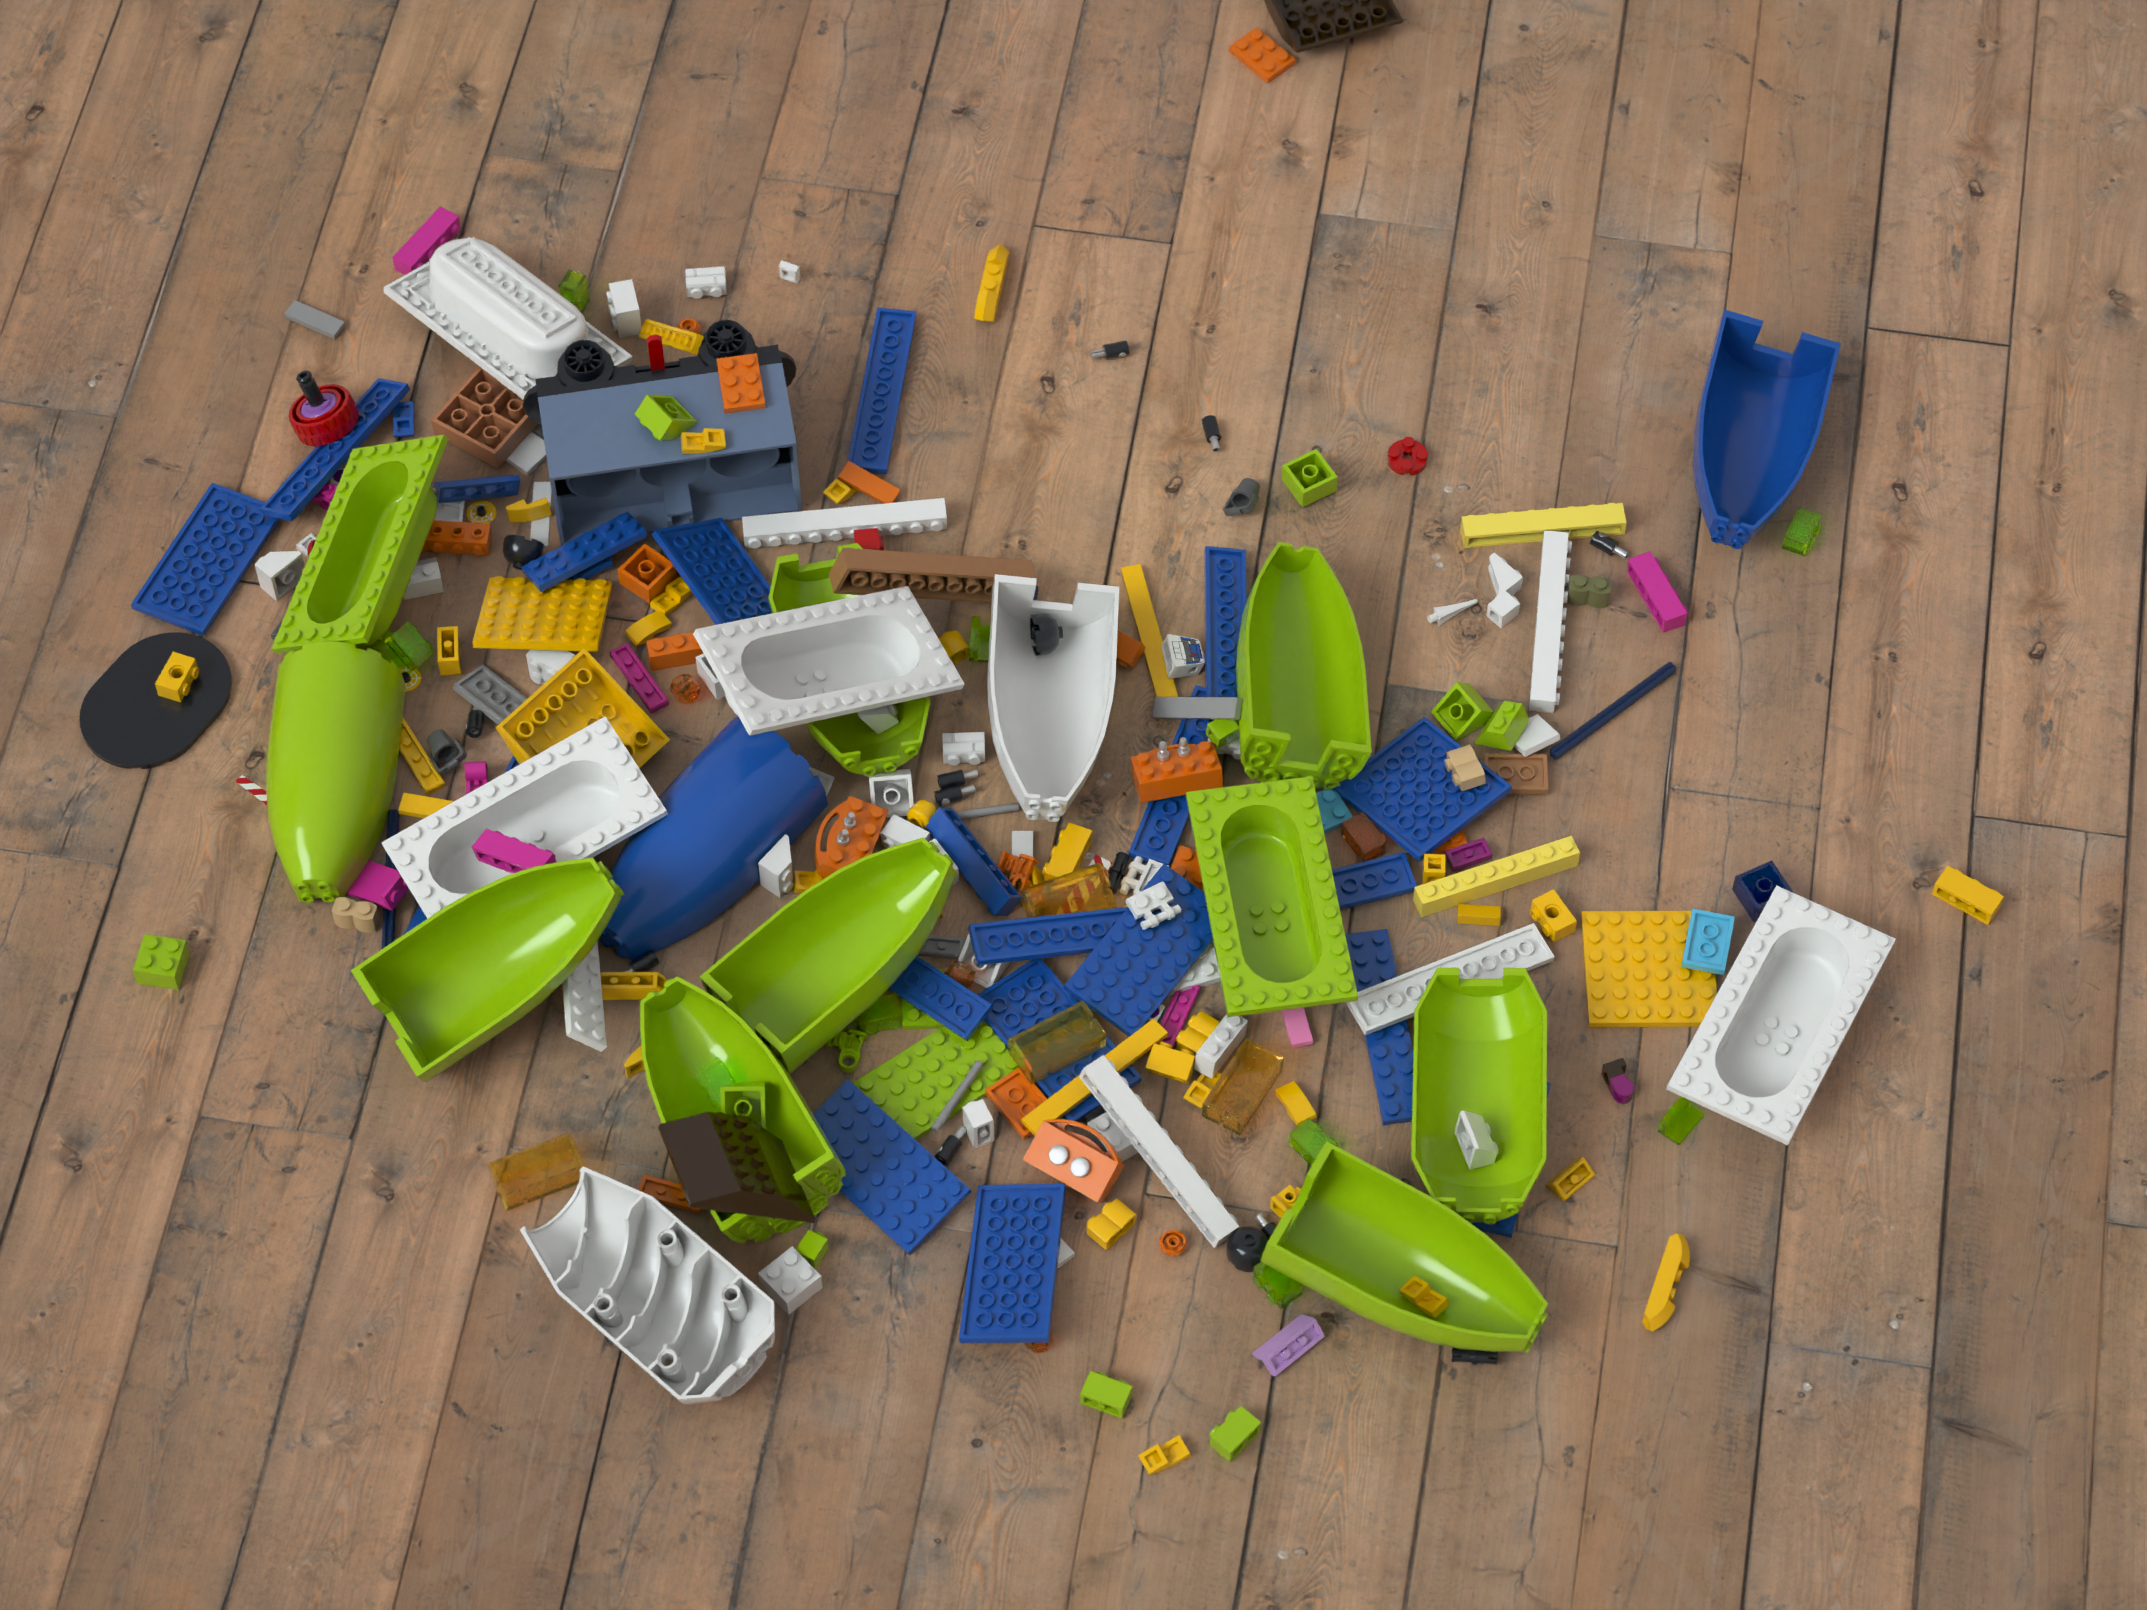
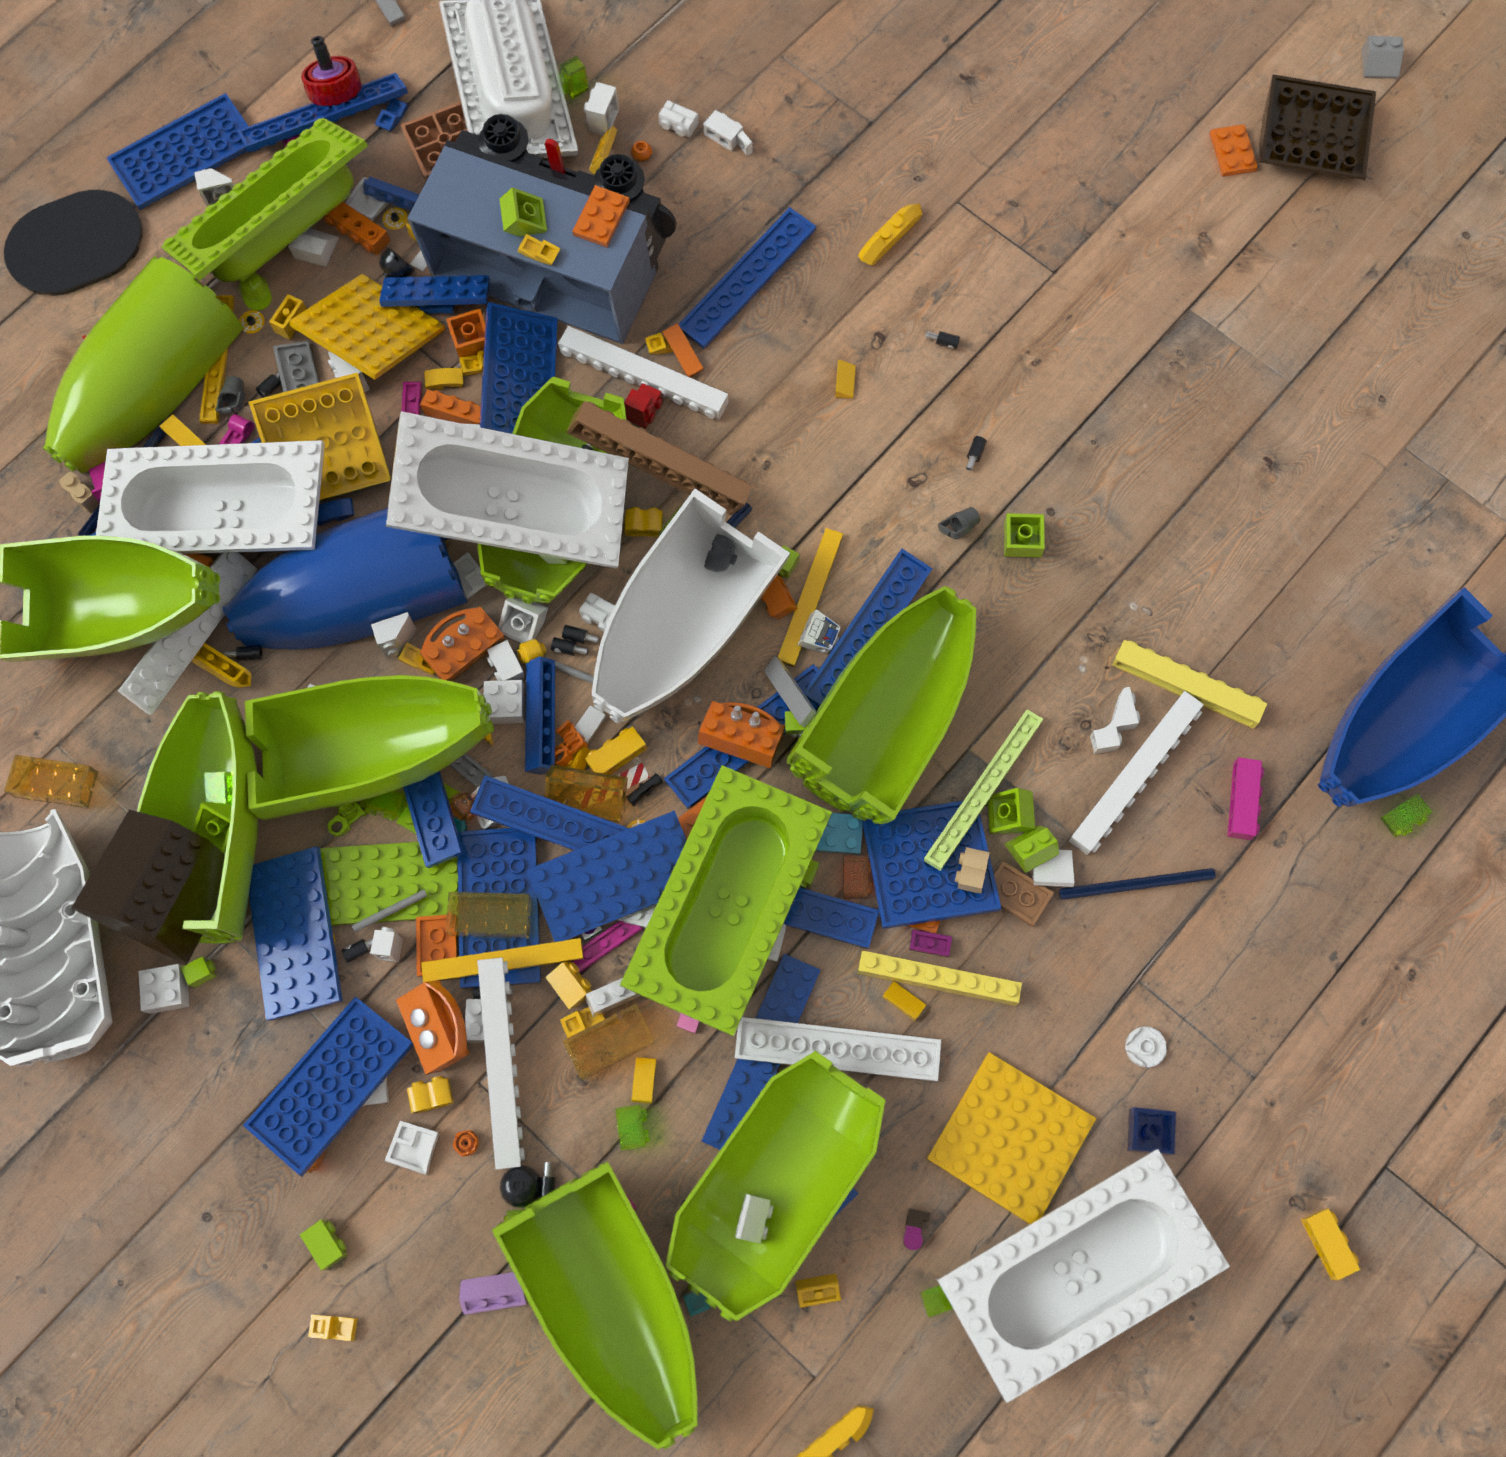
camera: 35 degrees right, 15 degrees up
(168, 683) = (92, 231): yellow brick -> none
(409, 646) = (262, 297): clear neon green brick -> none
(509, 853) = (180, 519): dark pink brick -> none
(759, 270) = (722, 130): none -> white brick
(1043, 433) = (845, 380): none -> yellow slope
(1127, 1274) = (412, 1147): none -> white plate
(1135, 868) = (669, 804): white plate -> none
(1150, 900) = (638, 838): white plate -> none
(1197, 1032) = (608, 971): yellow brick -> none
(1234, 1433) = (395, 1347): lime brick -> none
(1280, 1203) = (569, 1162): yellow brick -> none
(1410, 447) = (1122, 550): red plate -> none
(1423, 1297) = (623, 1325): yellow slope -> none
(1426, 704) = (983, 790): none -> yellowish green plate
(1433, 867) = (890, 942): yellow brick -> none
(1443, 613) = (1055, 715): white piece -> none
(1552, 905) = (967, 1031): yellow brick -> none
(1589, 591) = (1184, 763): olive brick -> none
(1607, 544) = (1231, 731): black piece -> none
(1708, 941) = (1072, 1151): medium azure plate -> none
(1711, 834) = (1145, 1047): none -> white tile

